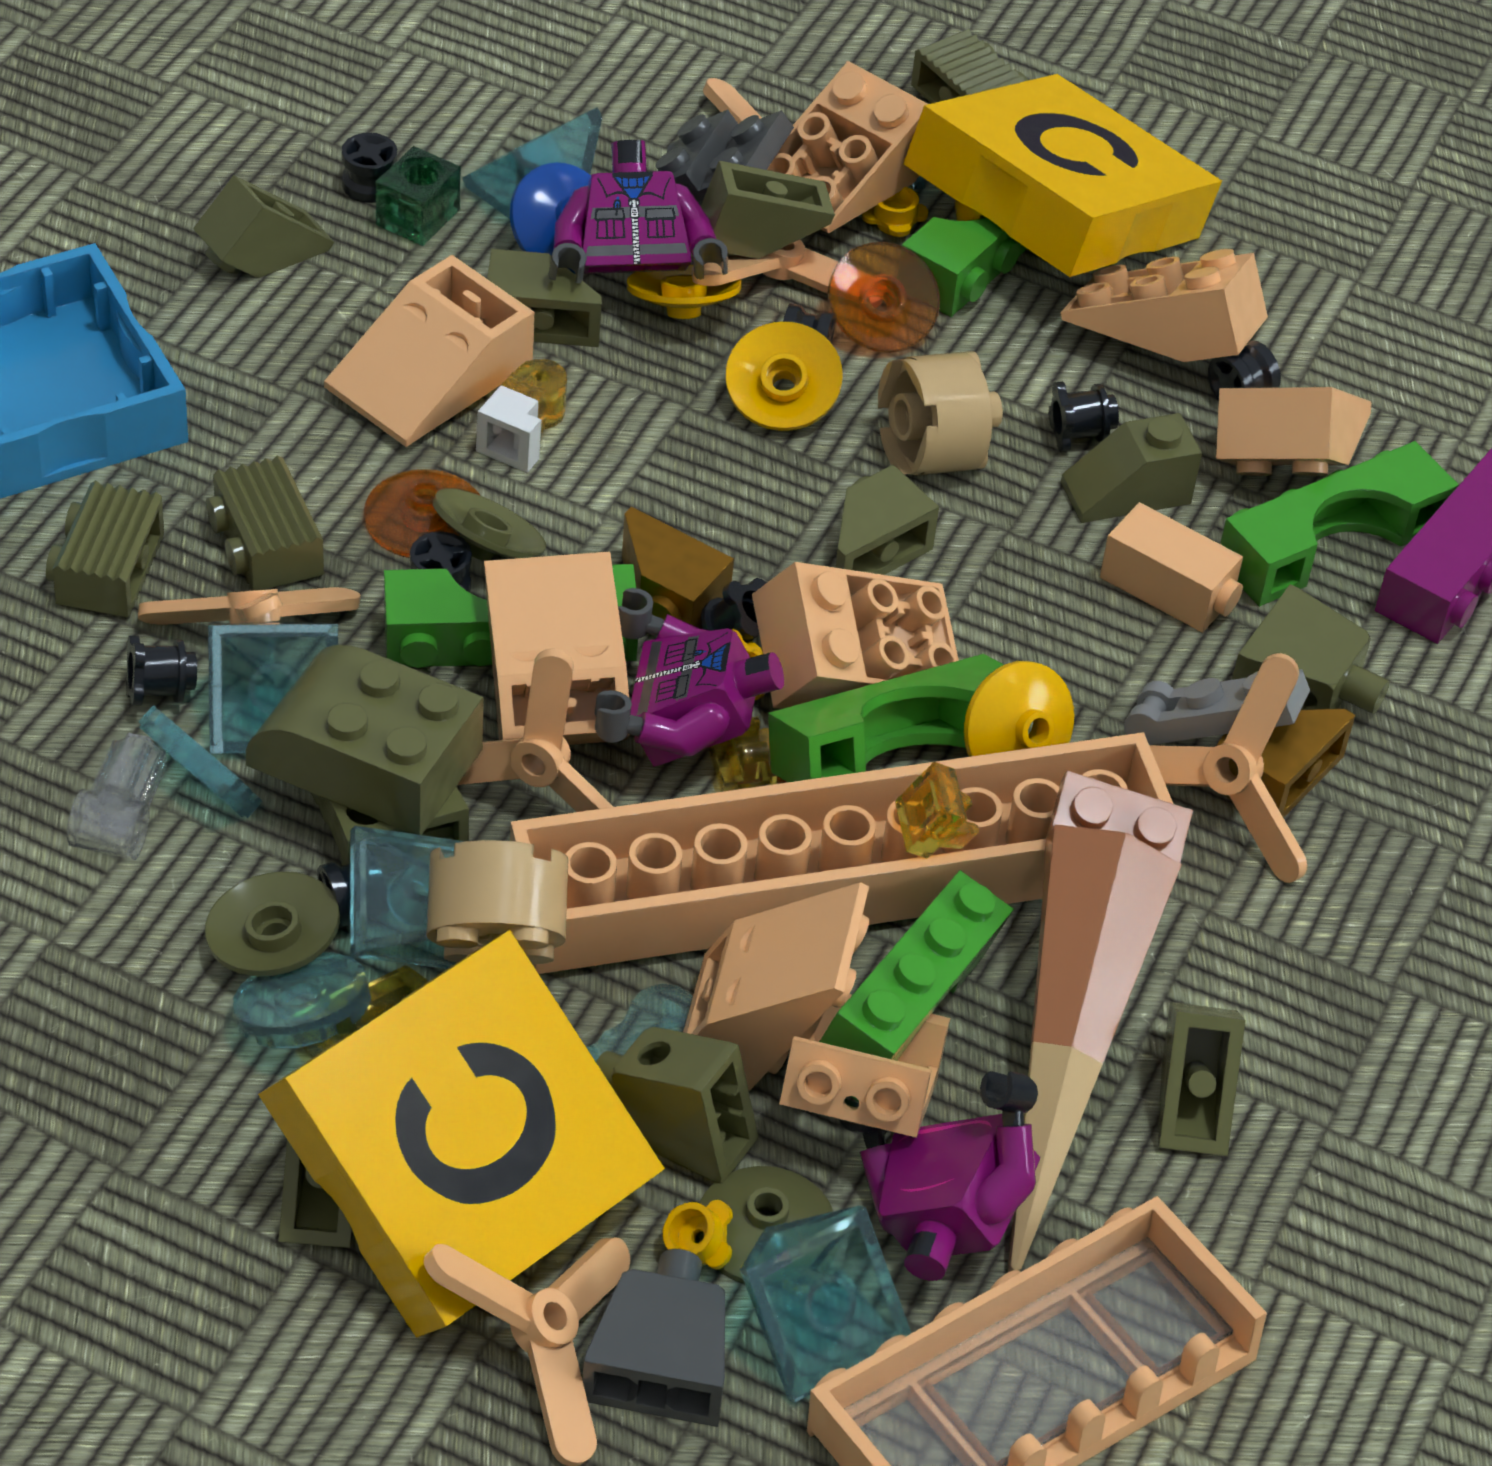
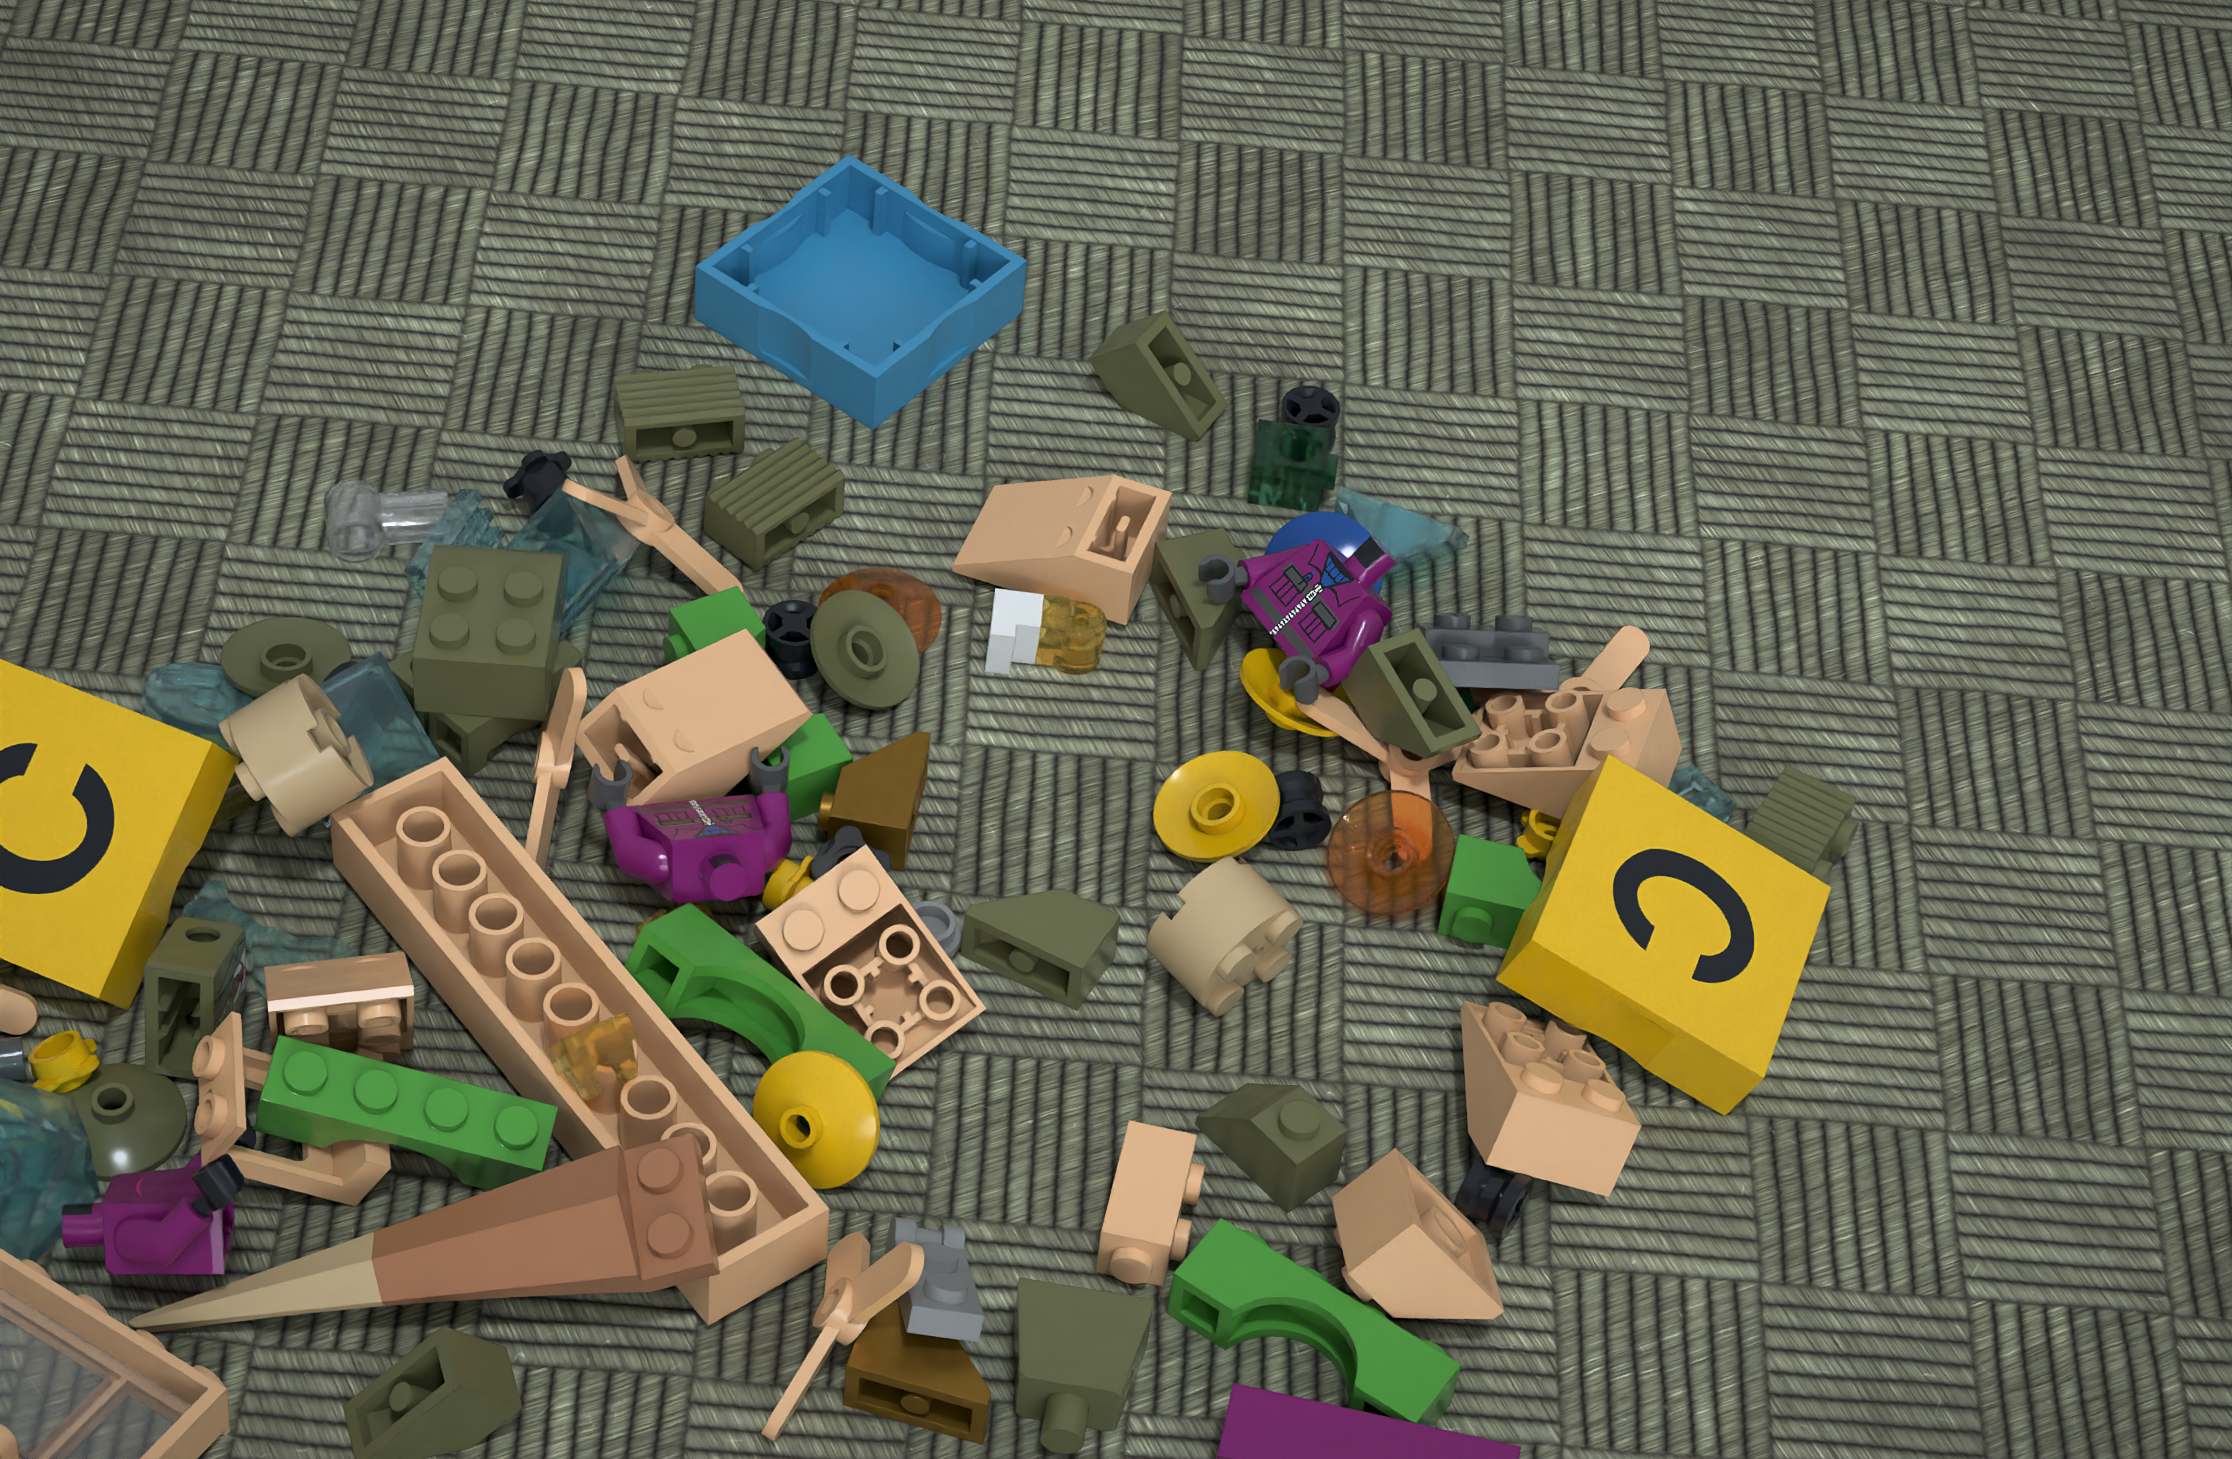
camera: 65 degrees right, 0 degrees up
(1081, 414) = (1331, 1067): black brick -> none

